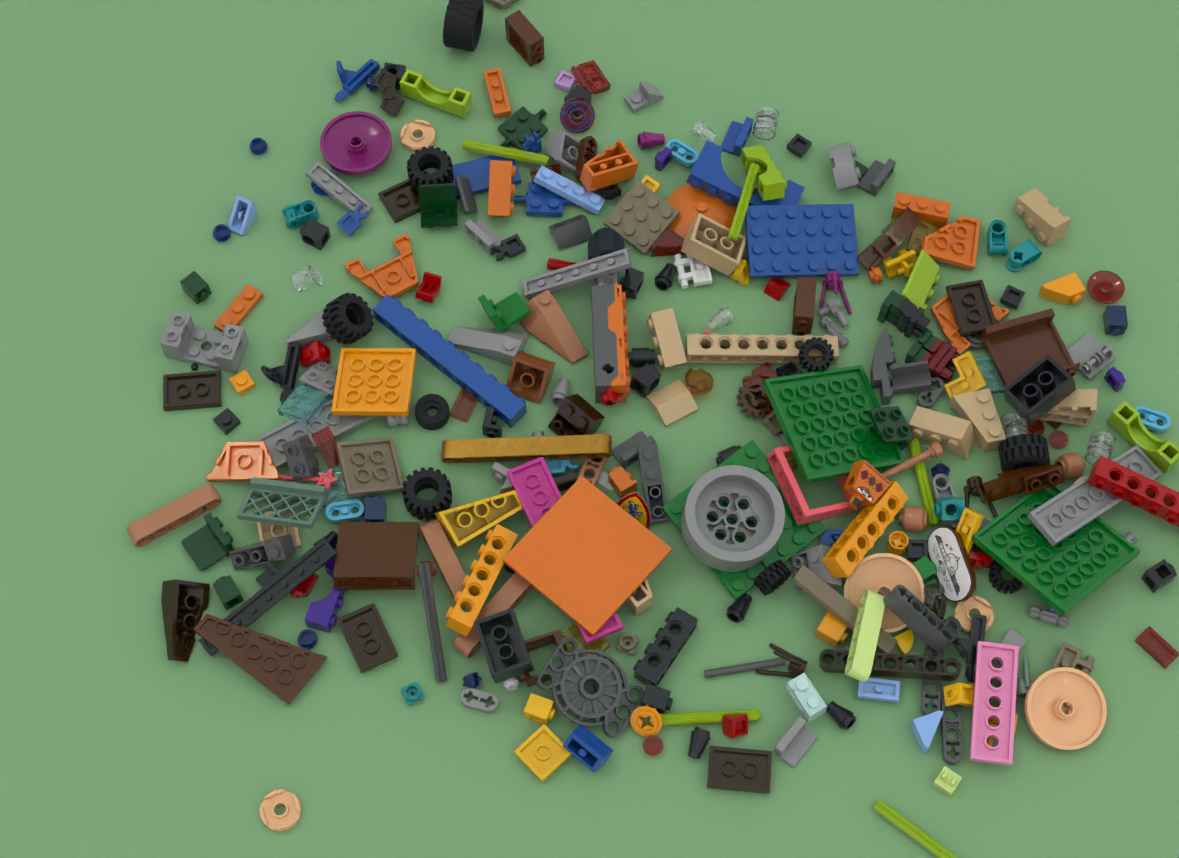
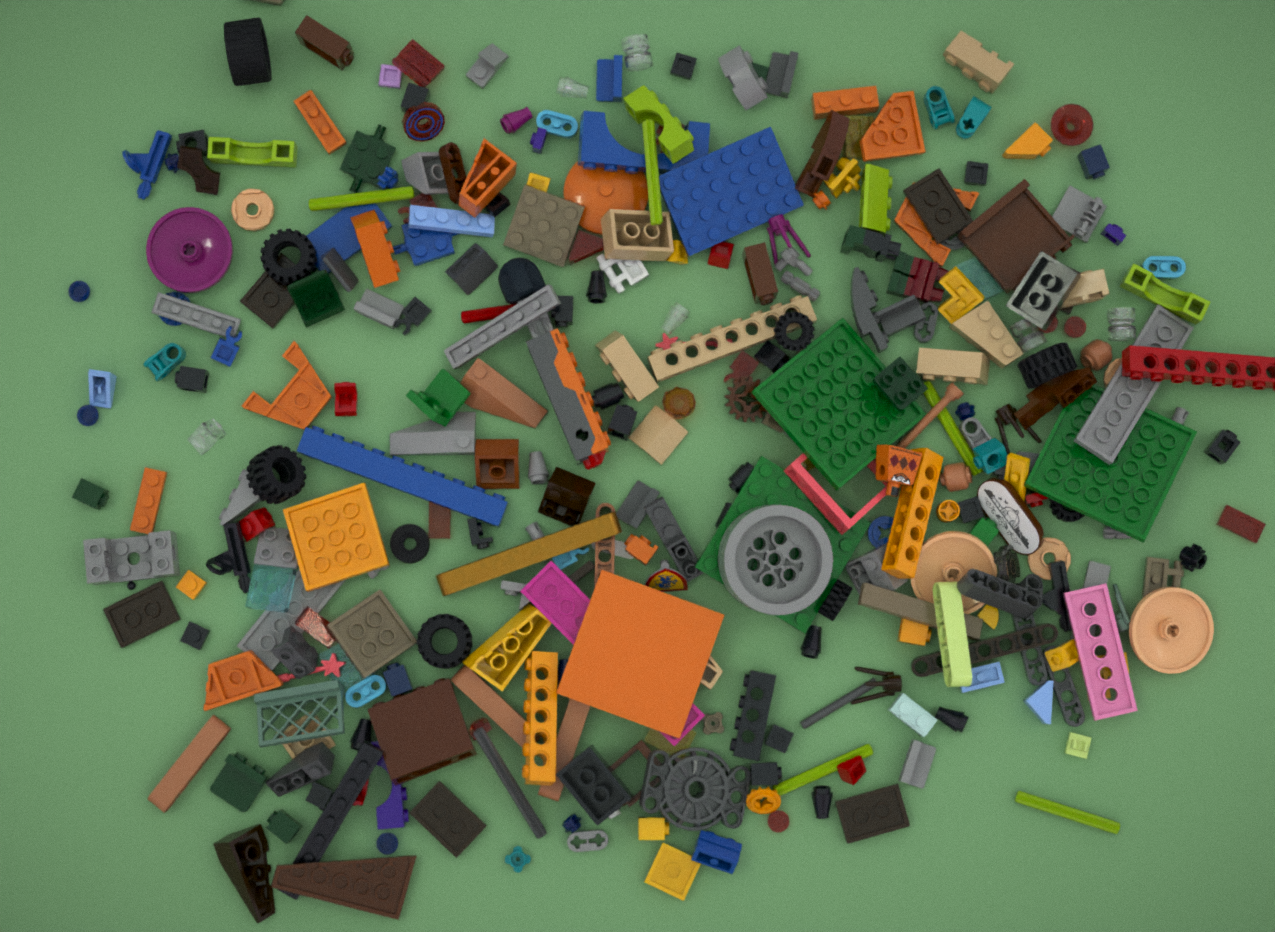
camera: 25 degrees left, 20 degrees up
(680, 674) = (778, 738): none -> black brick
(1104, 656) = (1193, 557): none -> black gear

